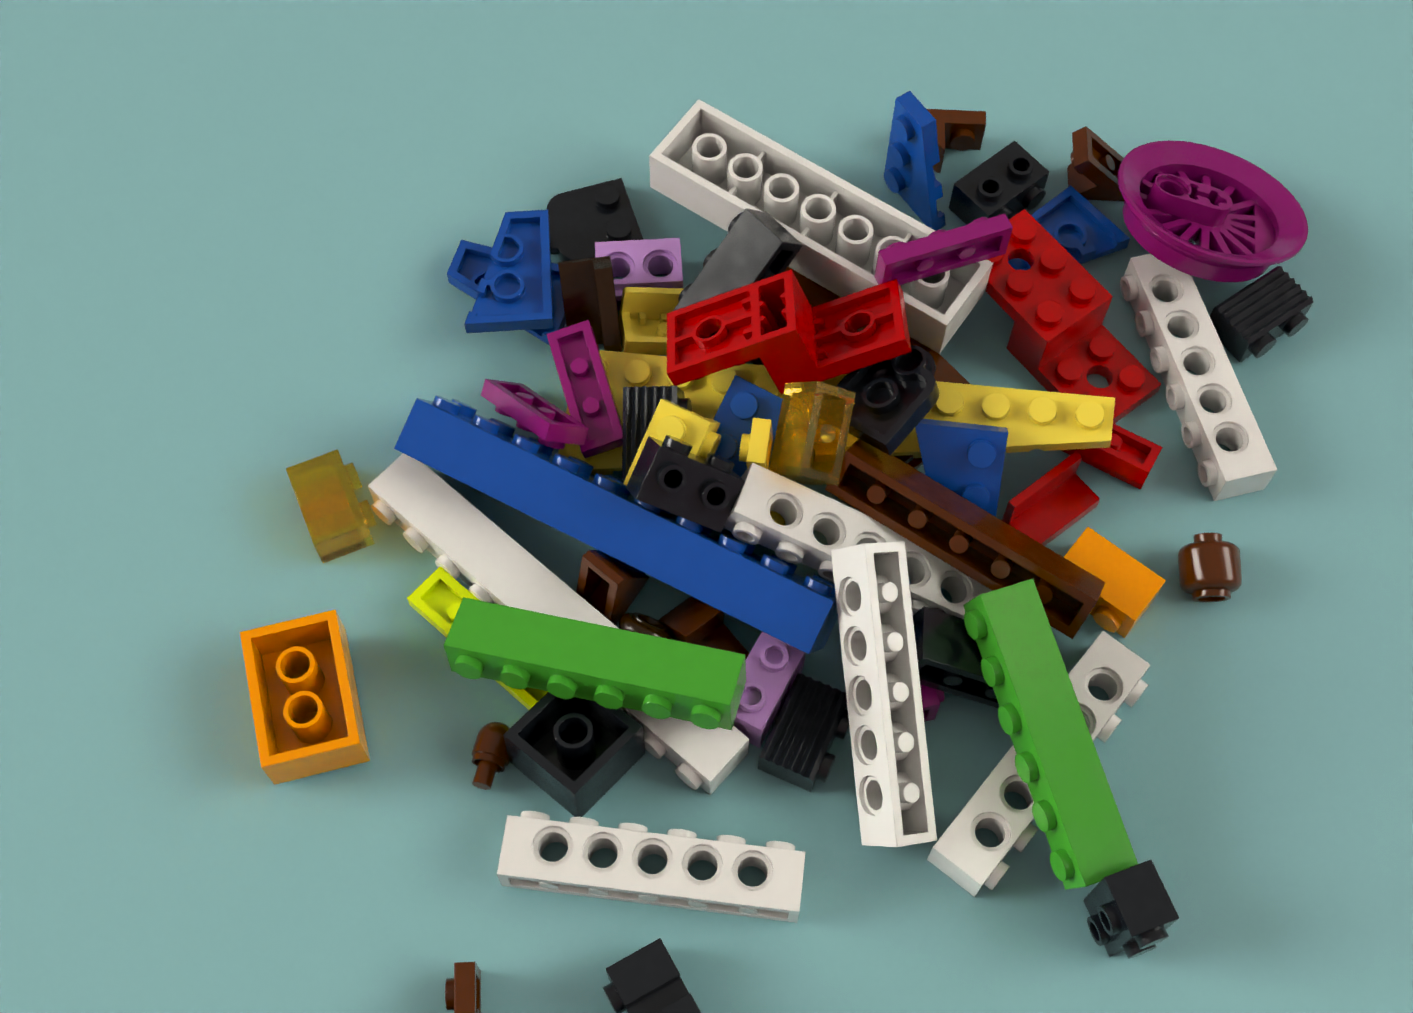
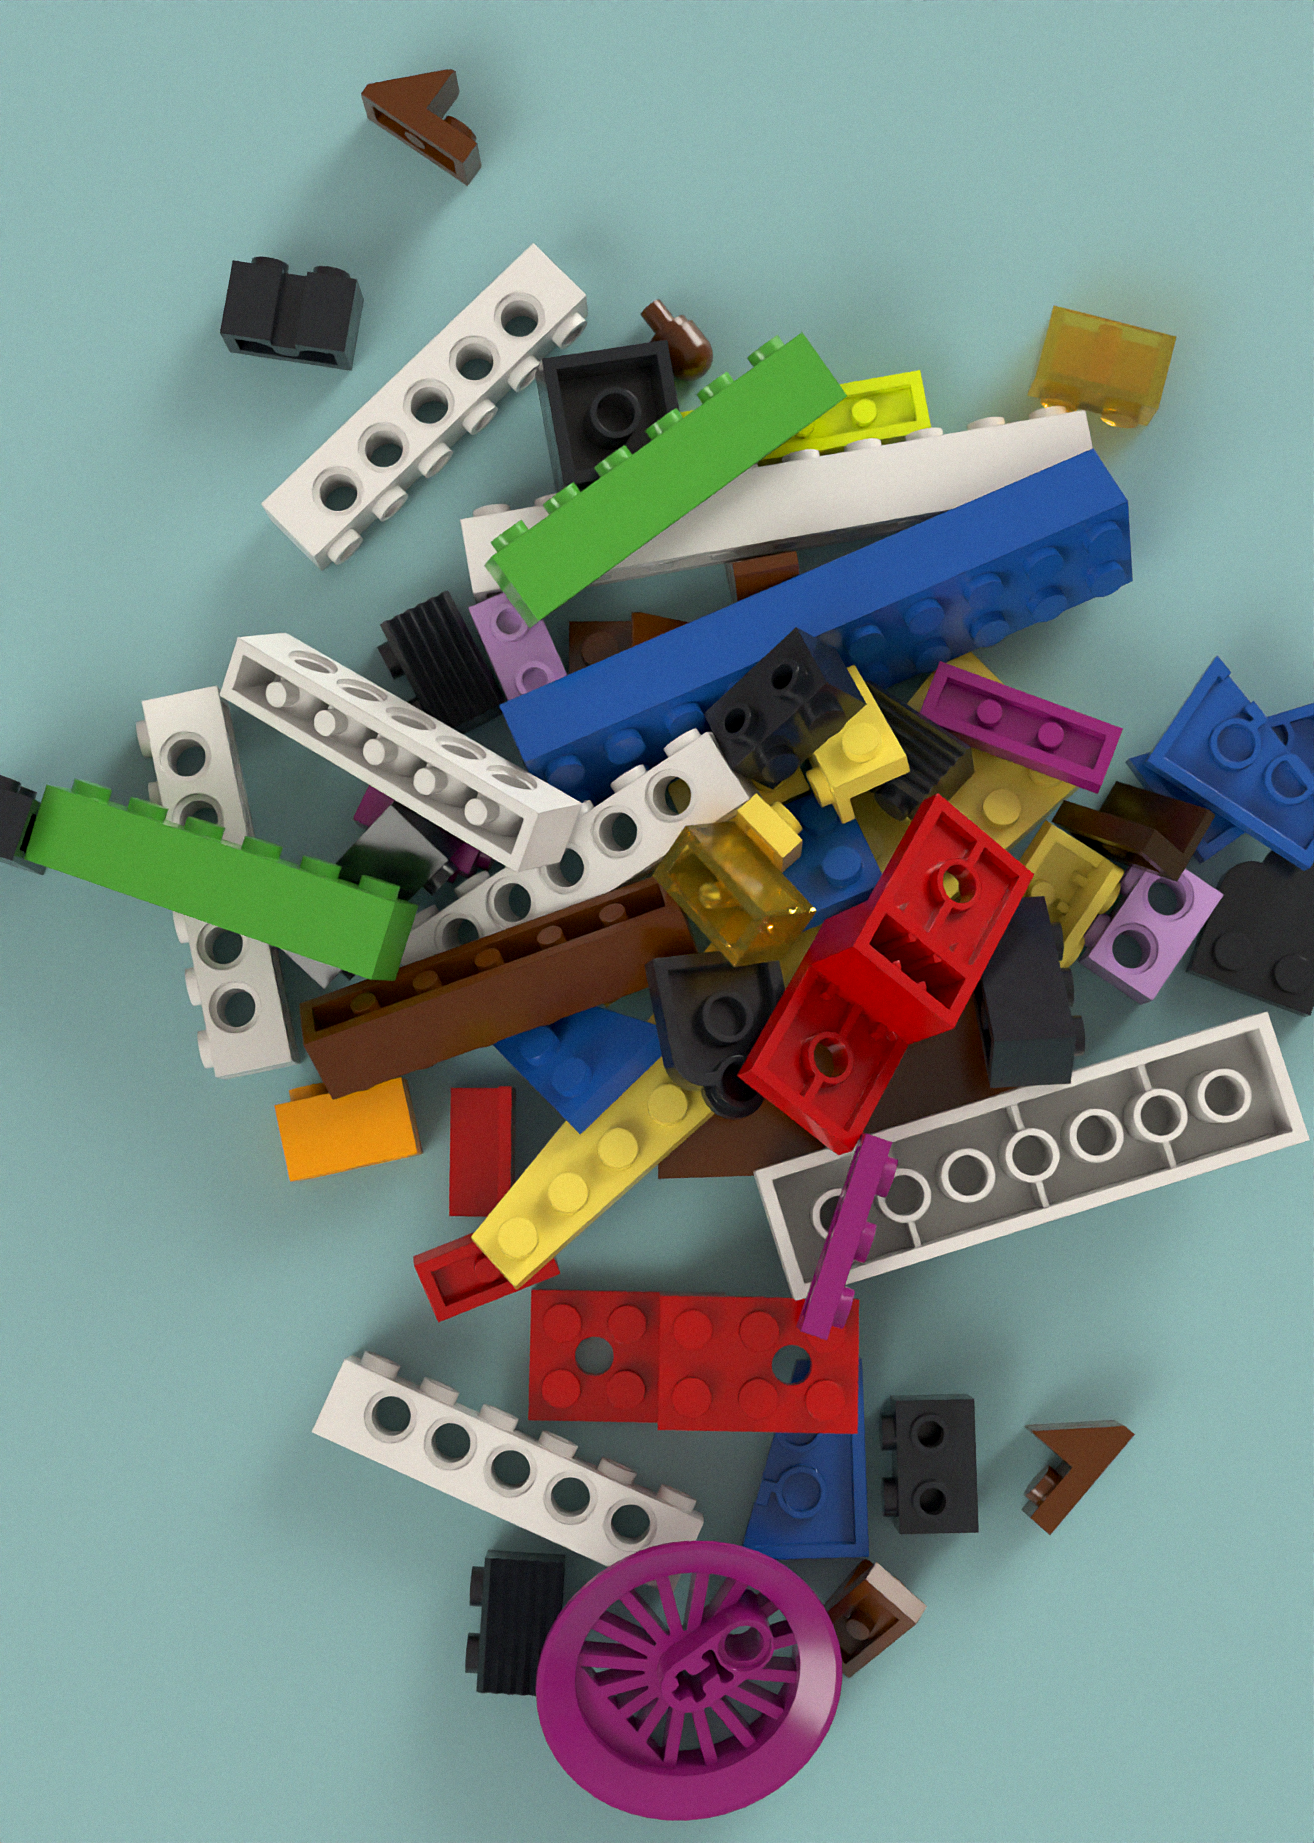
camera: 130 degrees right, 20 degrees up
(304, 697) = (880, 186): light orange brick -> none
(534, 413) = (1035, 649): magenta plate -> none
(644, 624) = (677, 576): dark brown piece -> none
(911, 159) = (1044, 1365): blue wing -> none
(1209, 568) = (273, 1257): reddish brown head -> none

